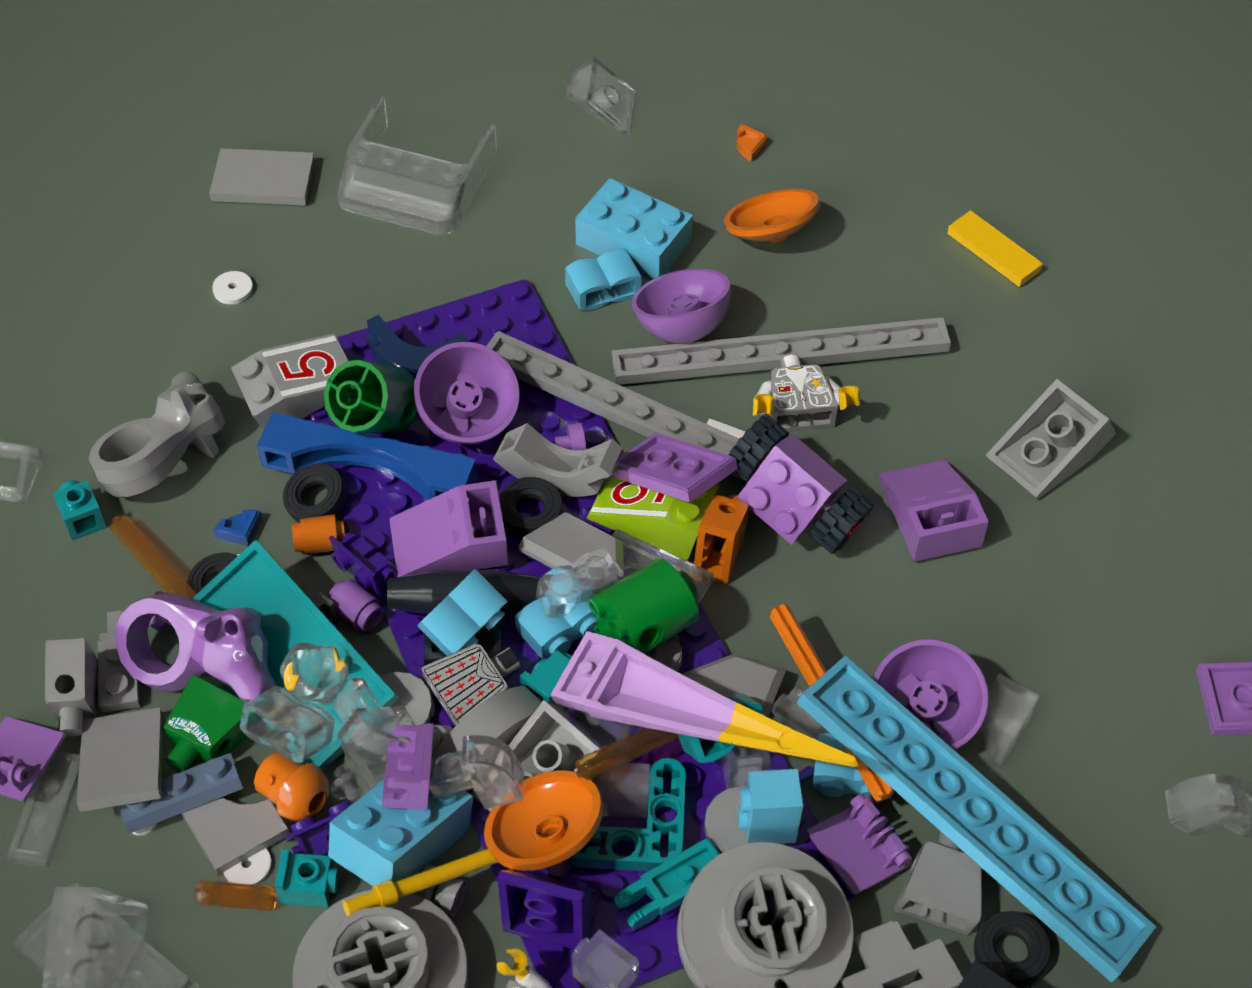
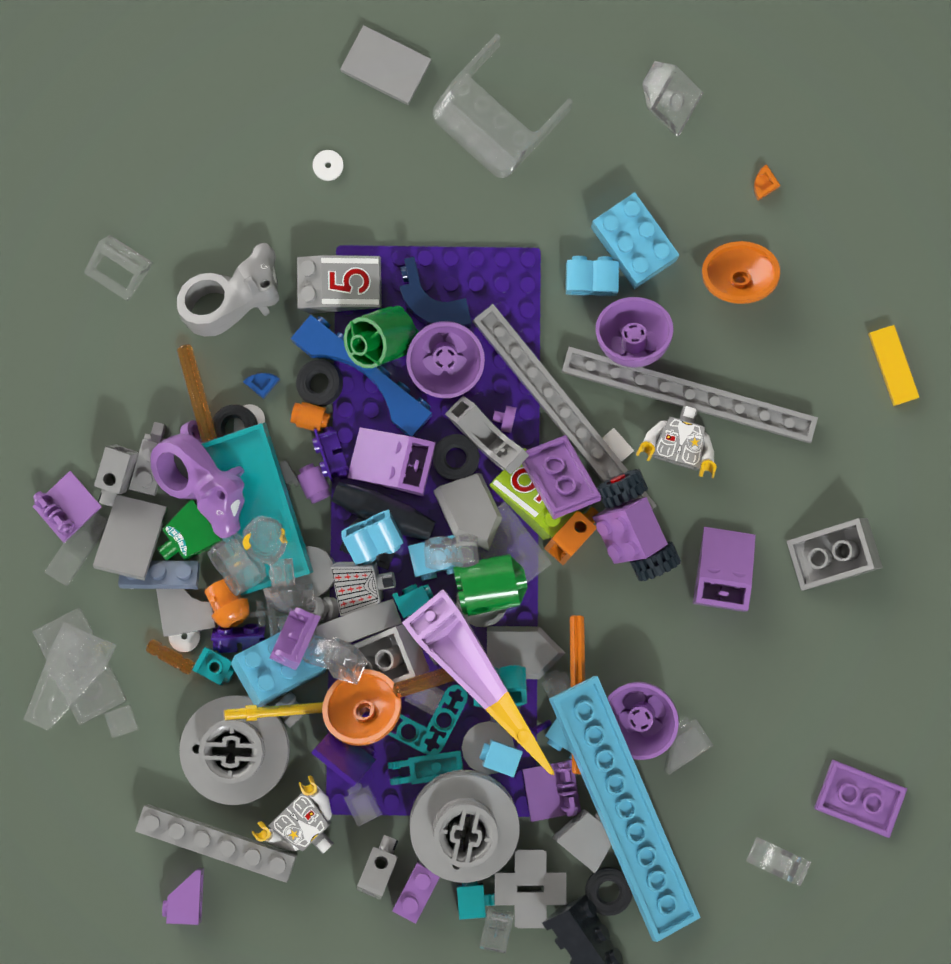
camera: 20 degrees right, 30 degrees up
(76, 502) = (165, 334): teal brick -> none

